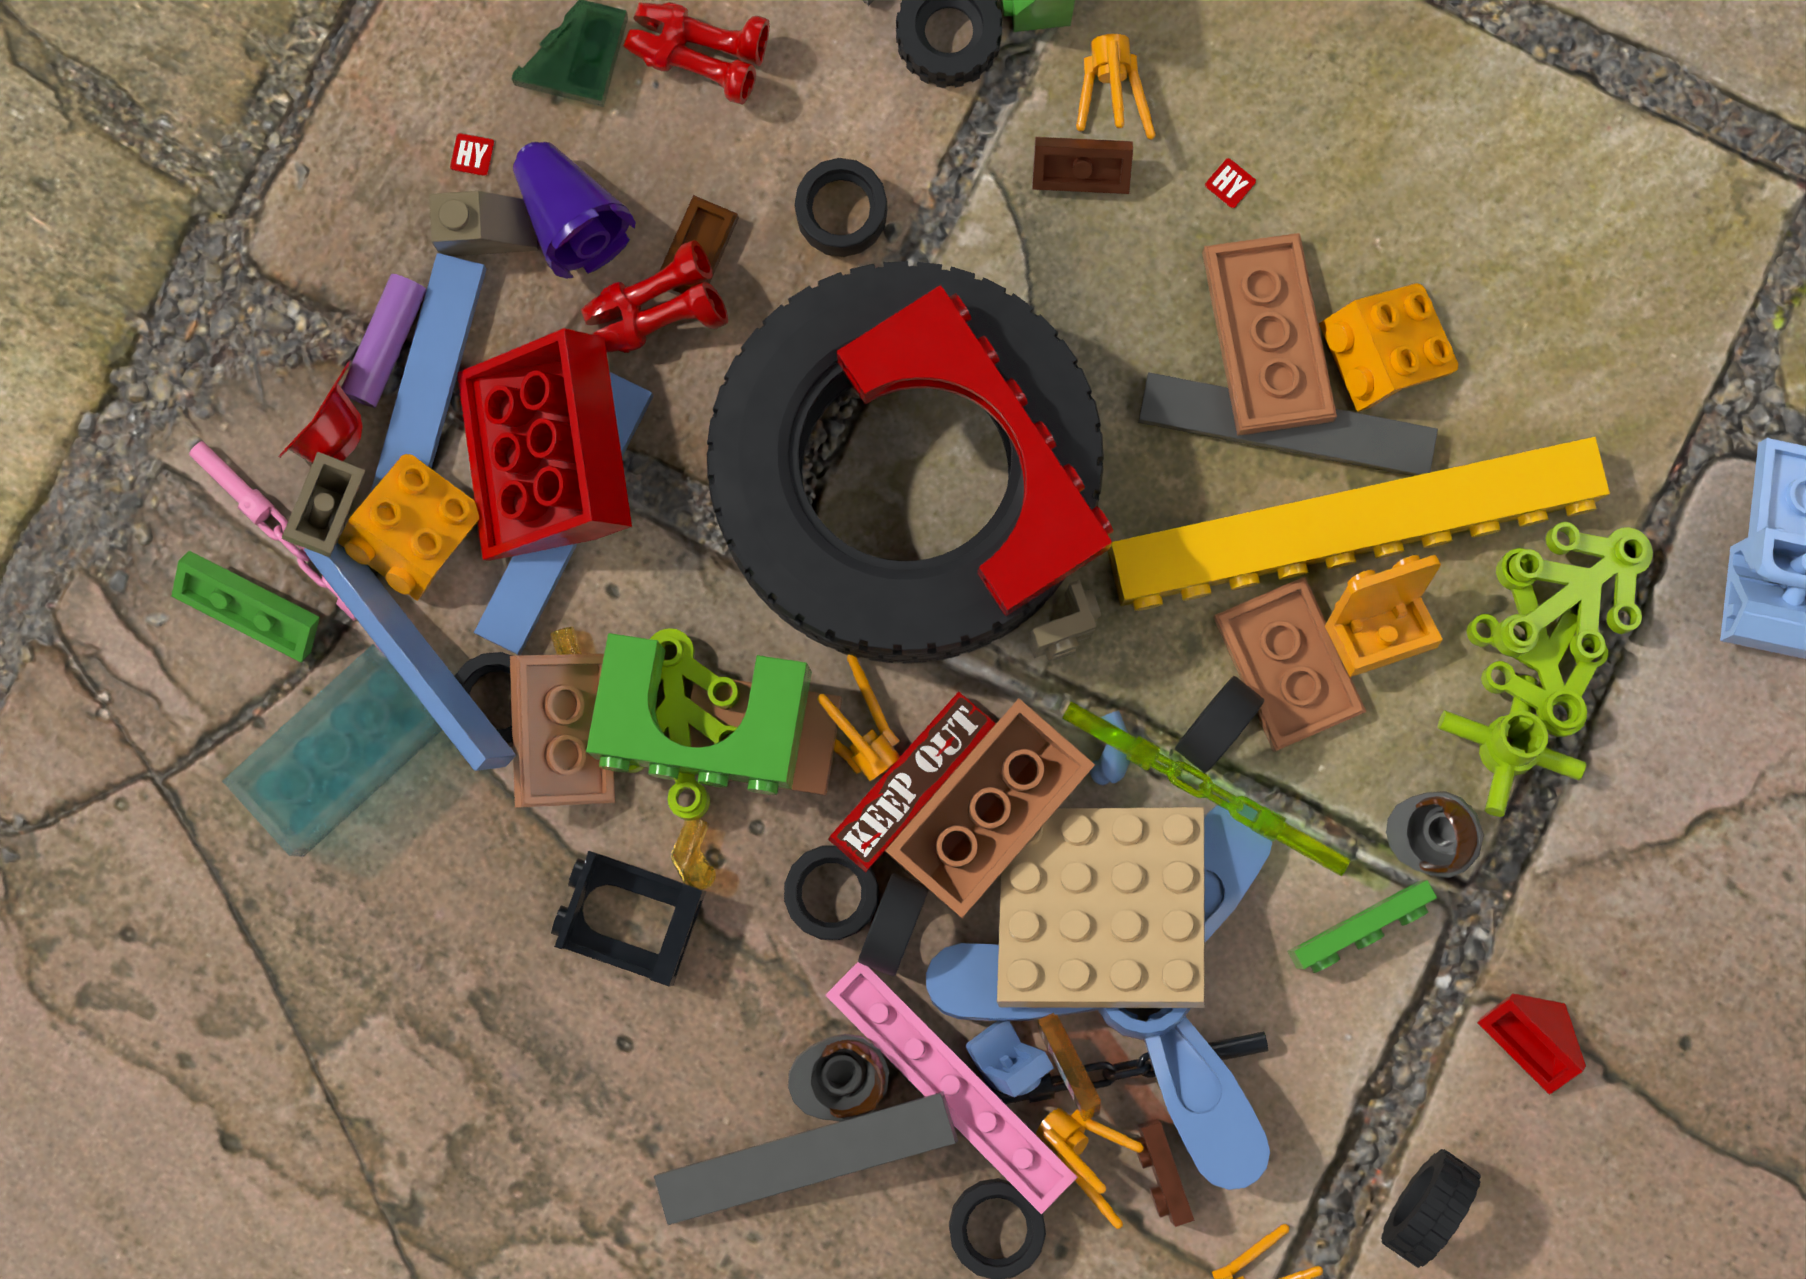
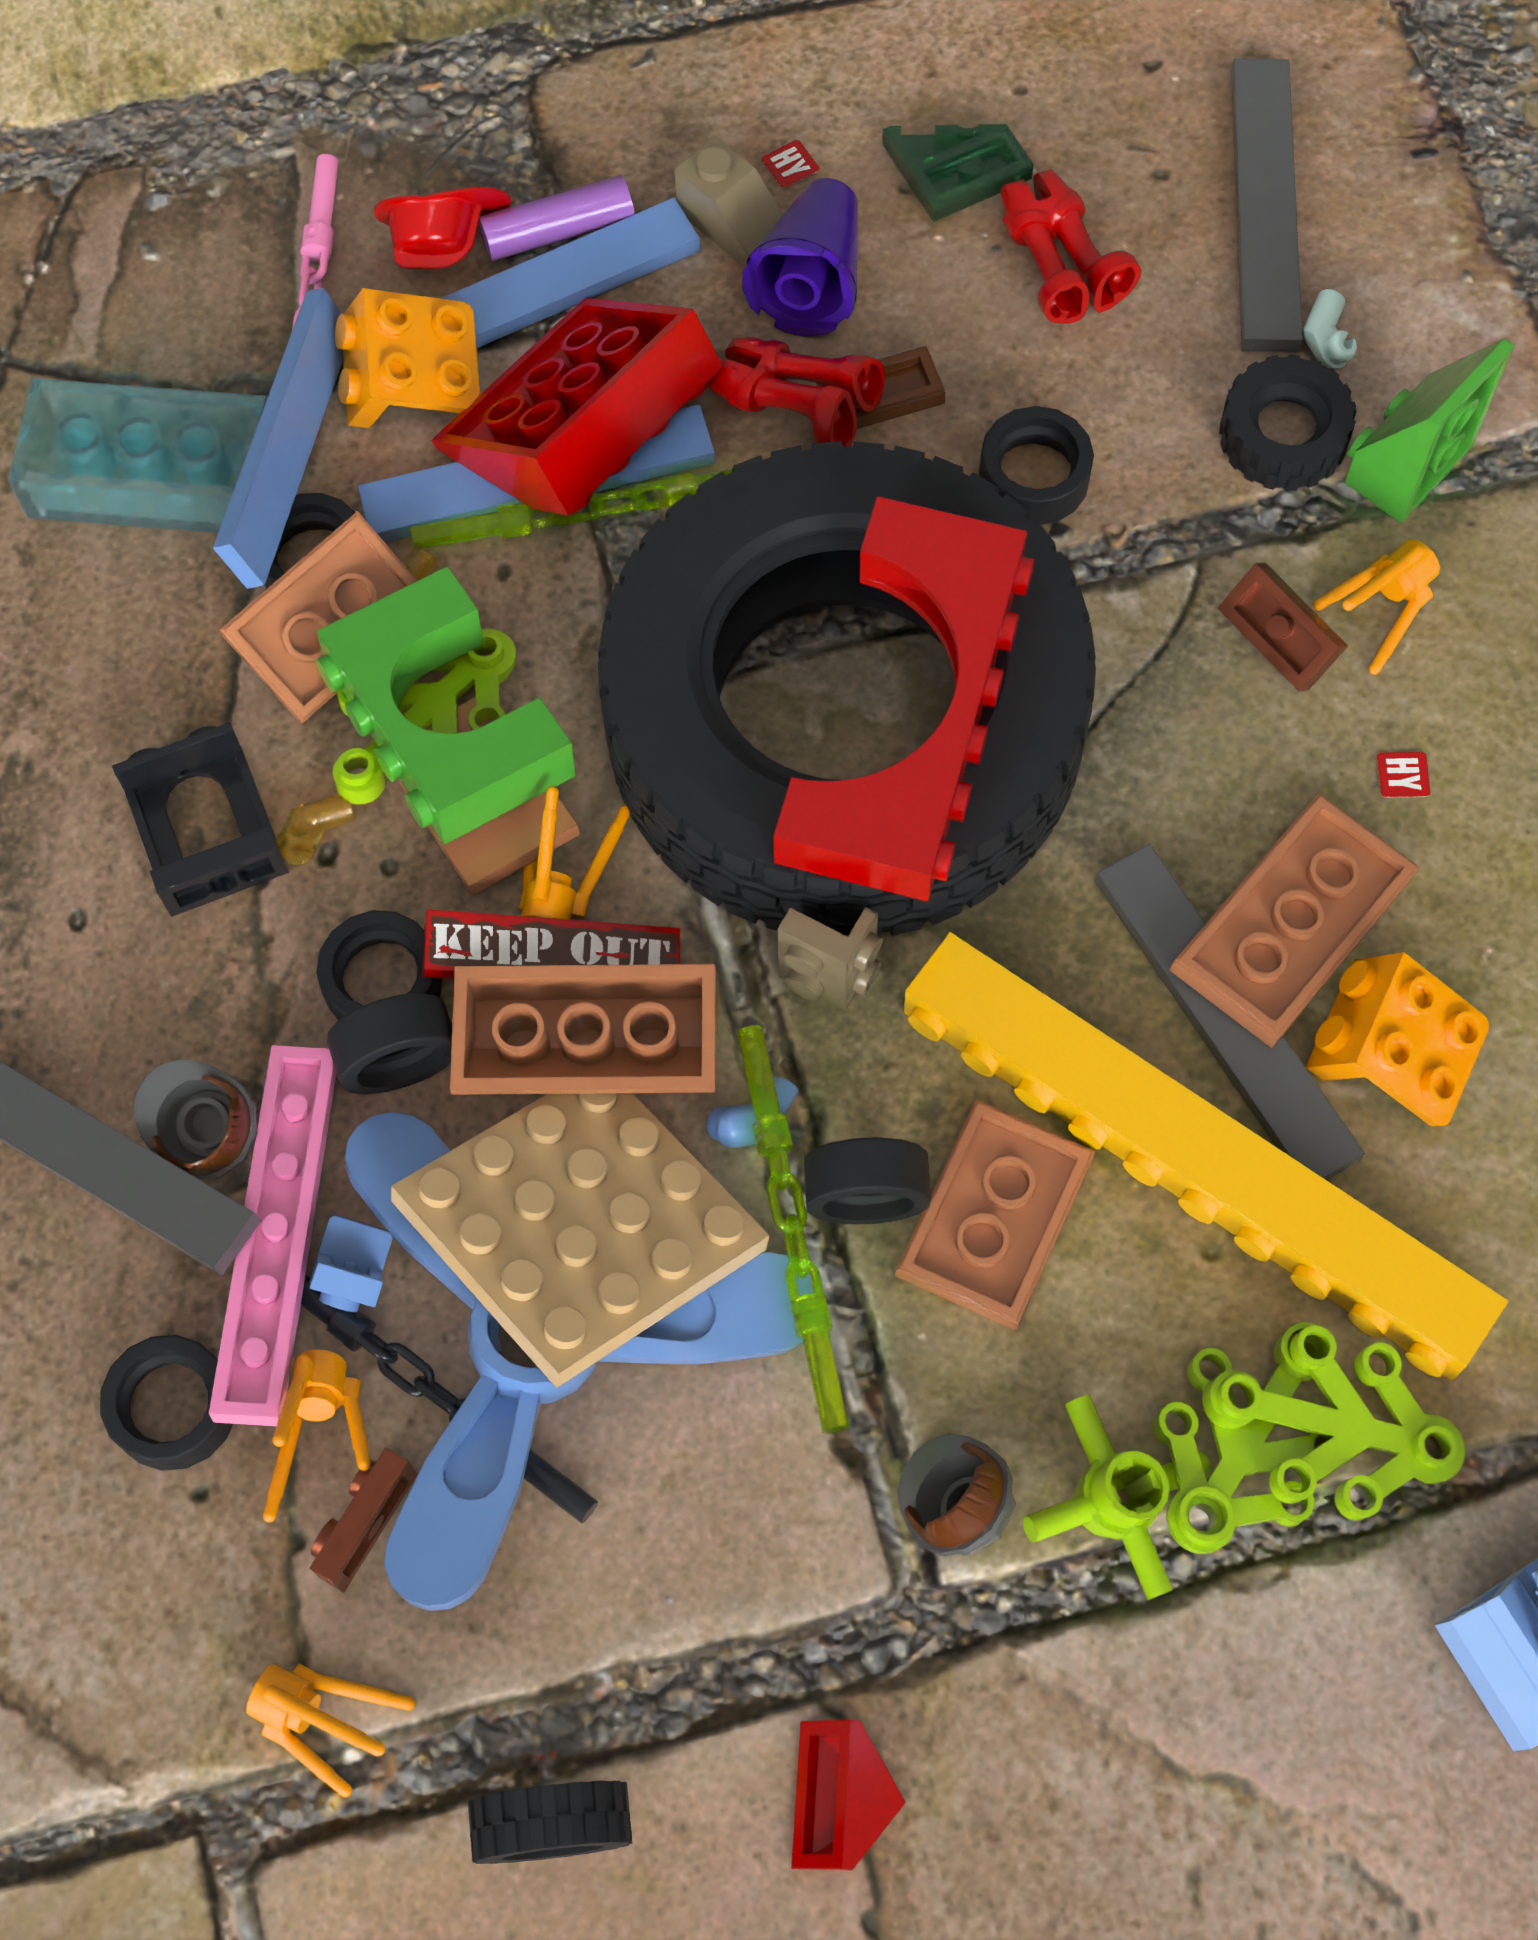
camera: 50 degrees right, 15 degrees down
(245, 606) = (217, 296): bright green plate -> none
(323, 504) = (345, 263): dark tan slope -> none
(655, 437) = (517, 520): none -> clear neon green piece
(1069, 1066) = (389, 1324): clear orange tile -> none
(1363, 927) = (793, 1506): bright green plate -> none
(1384, 616) = (1129, 1246): light orange bracket -> none

